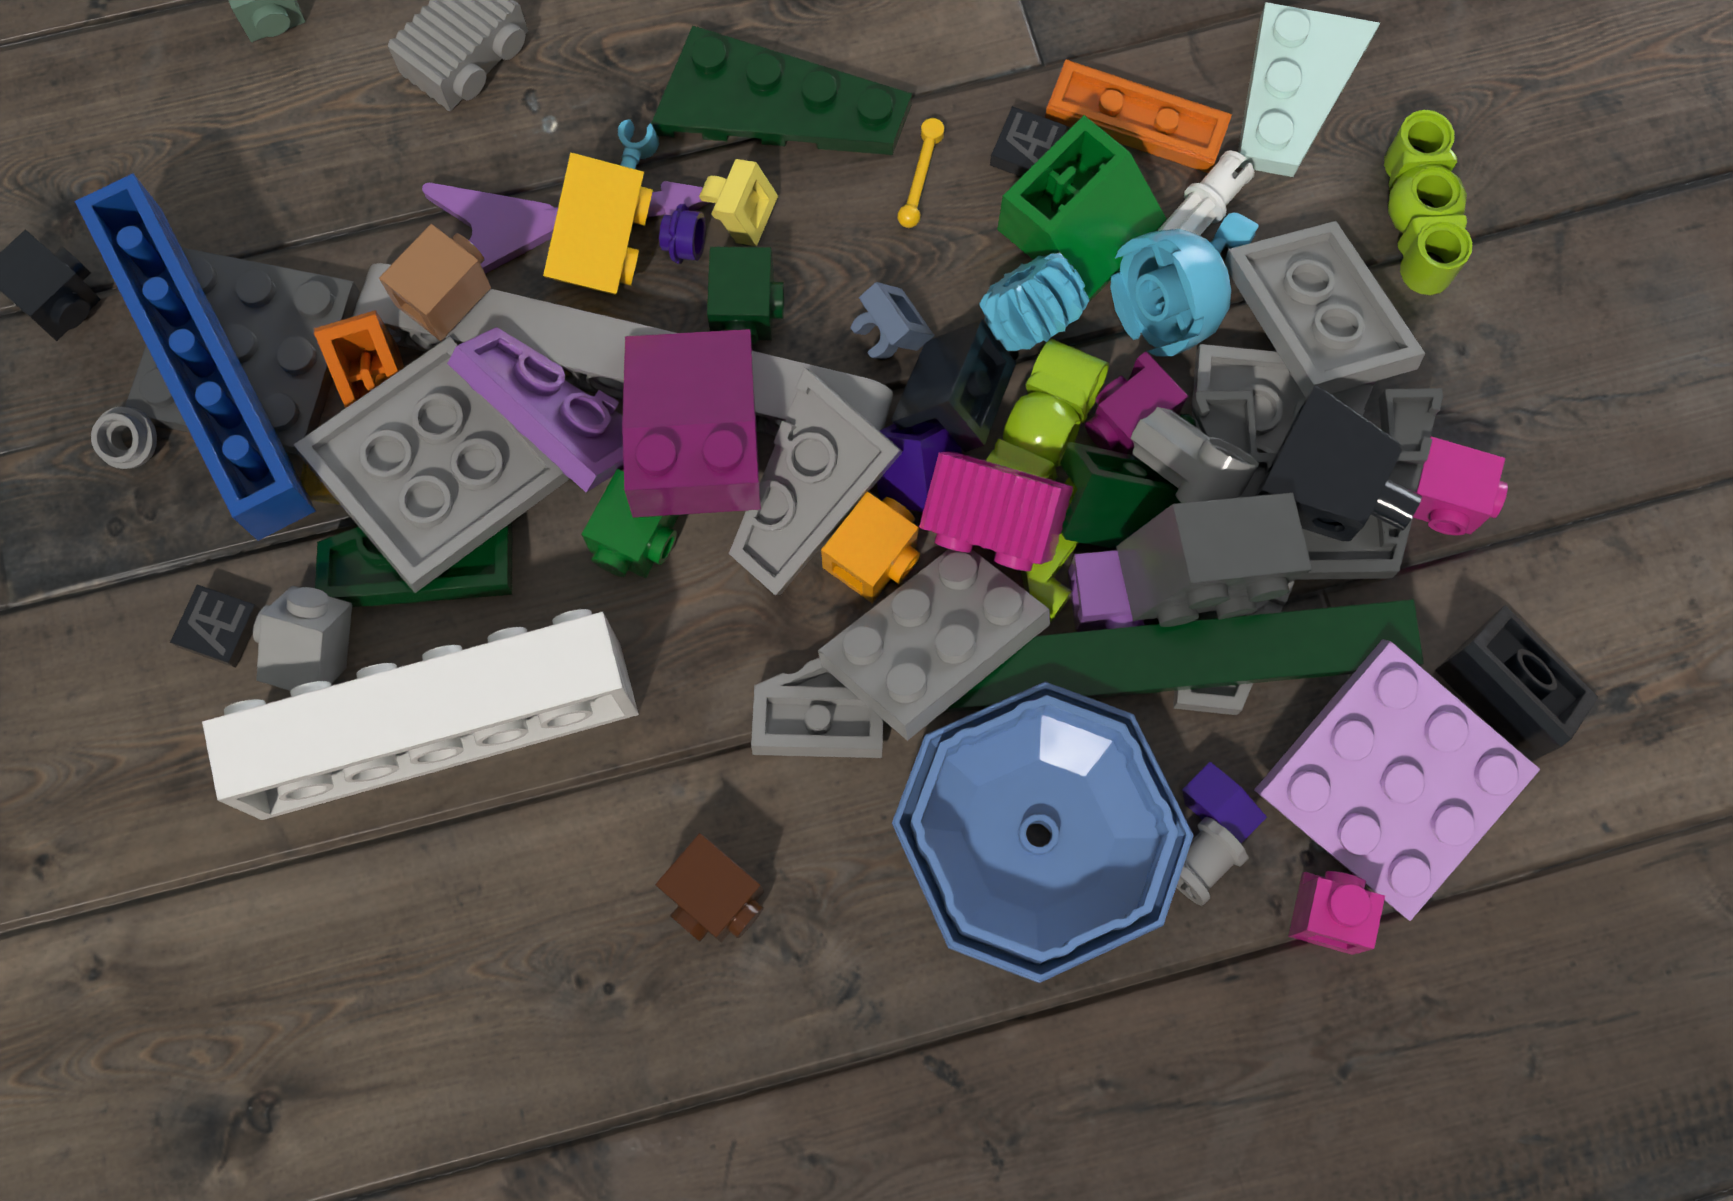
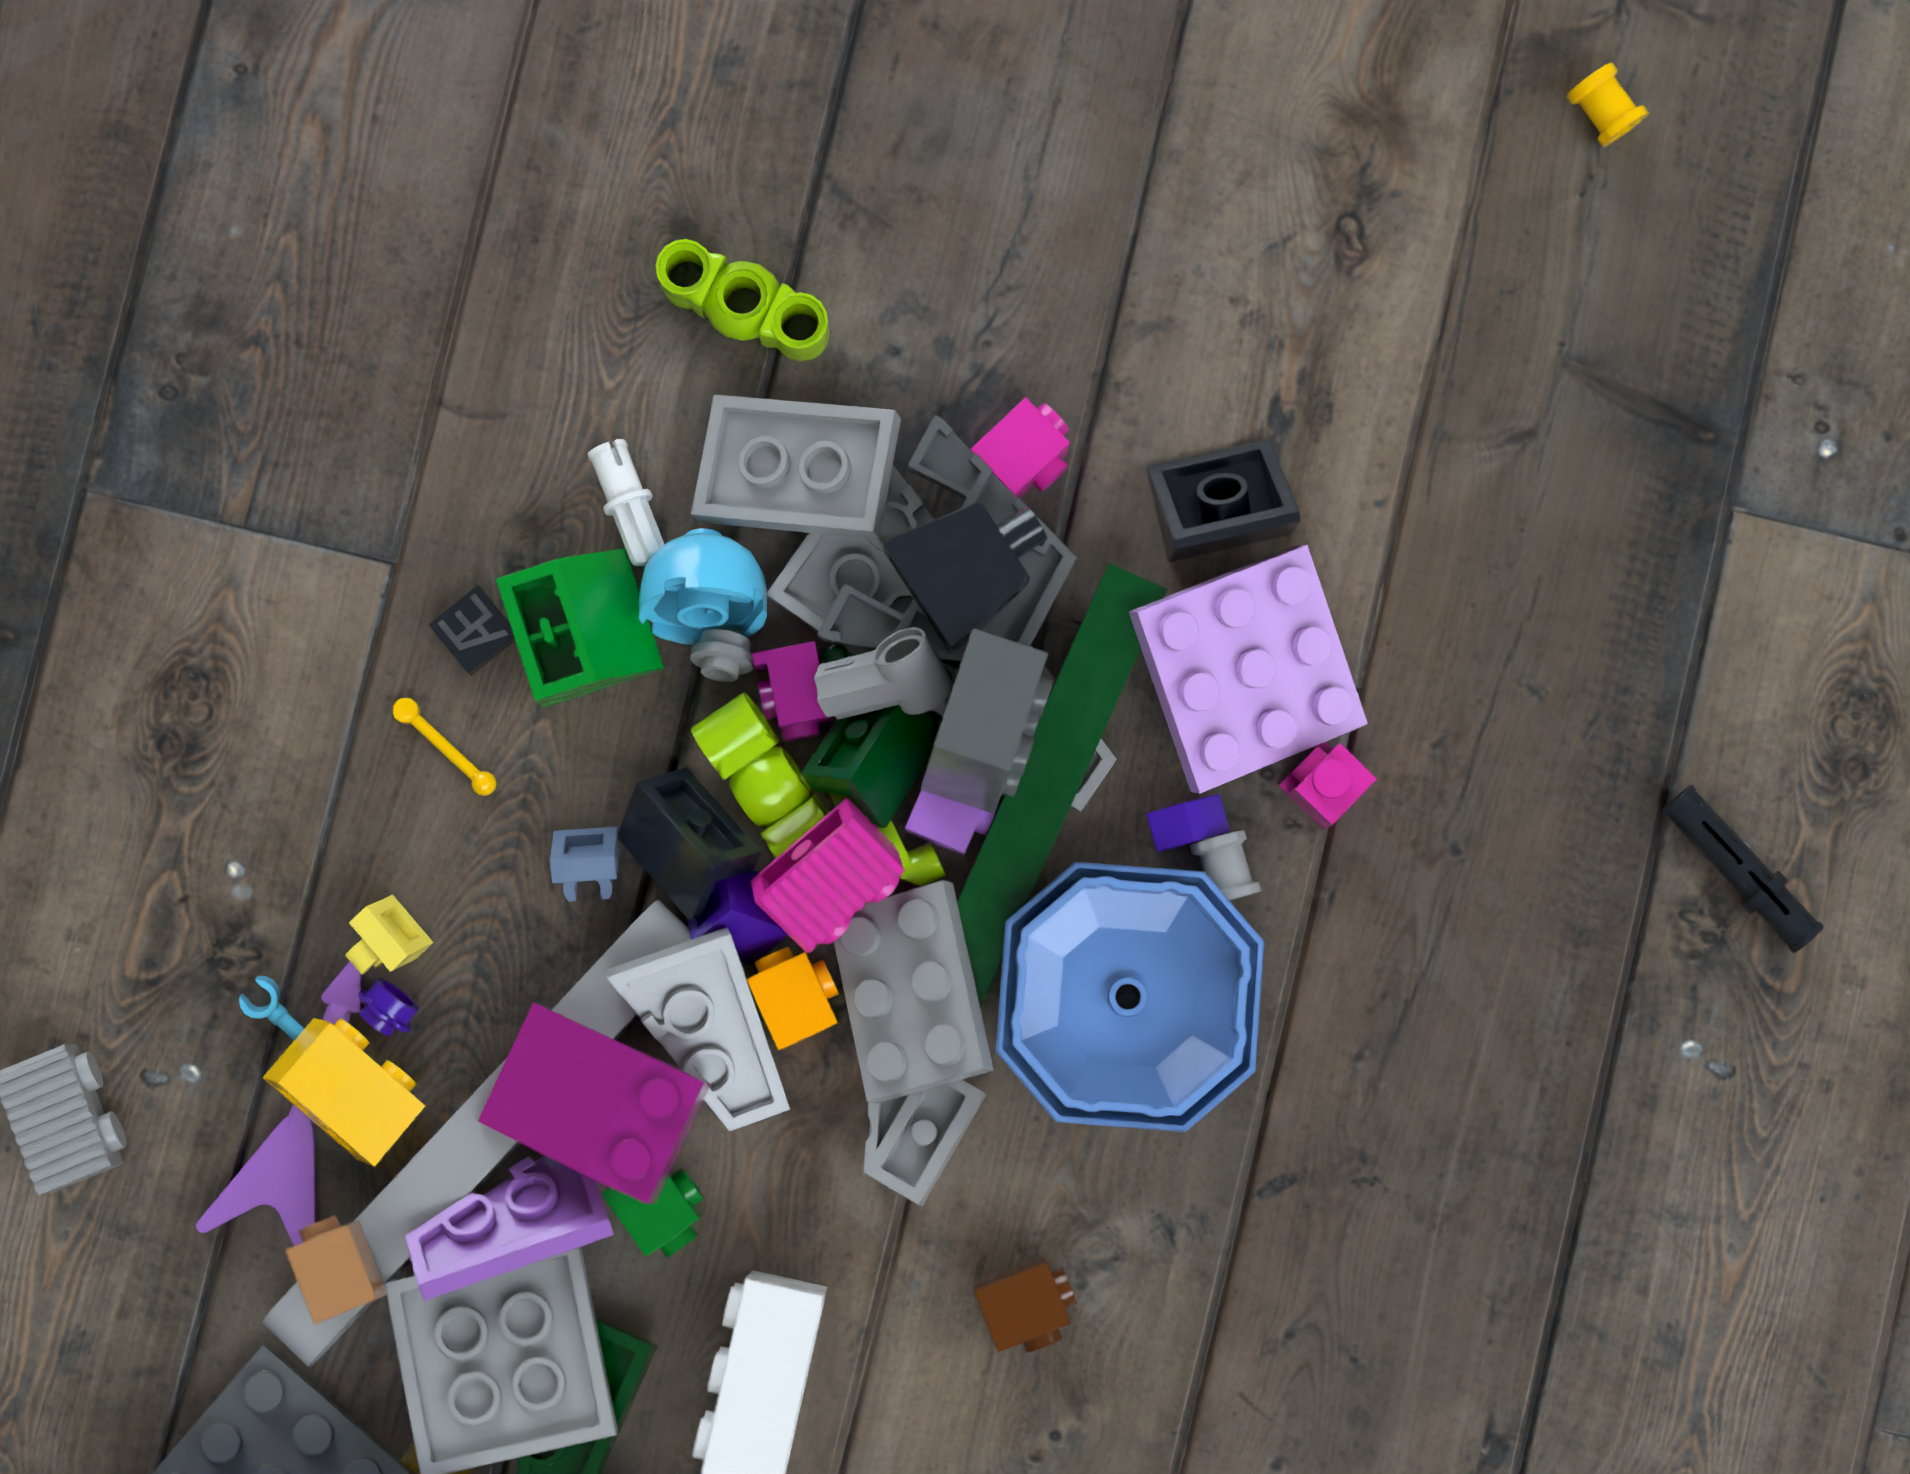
camera: 65 degrees left, 10 degrees up
(358, 354) = (362, 1376): orange slope -> none
(743, 291) = (485, 985): dark green brick -> none
(756, 92) = (276, 857): dark green wing -> none
(1034, 302) = (646, 725): medium azure gear -> none
(1126, 338) = (722, 655): none -> light grey plate
(1139, 115) = (501, 508): orange tile -> none
(1234, 232) = (672, 493): medium azure hand -> none
(1295, 80) = (550, 339): light aqua wing -> none

